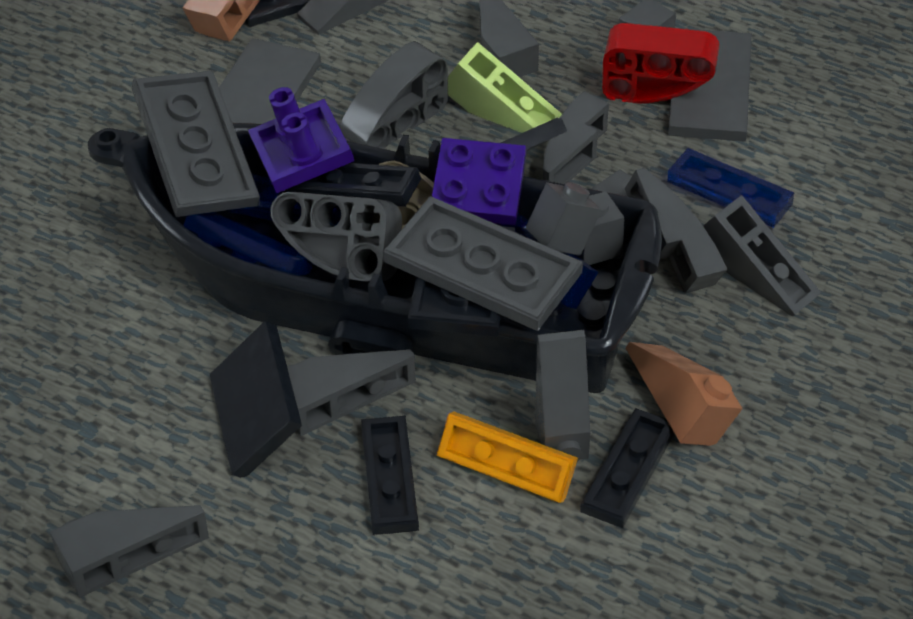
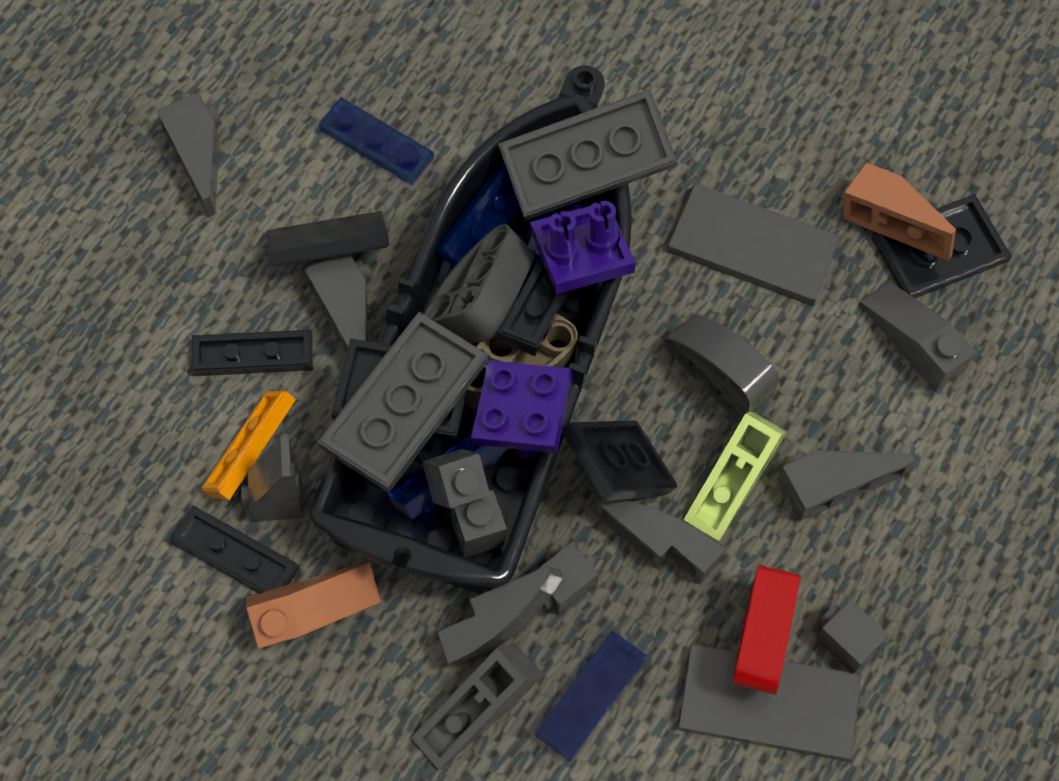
camera: 90 degrees right, 20 degrees up
(116, 386) = (376, 141): none -> clear blue plate

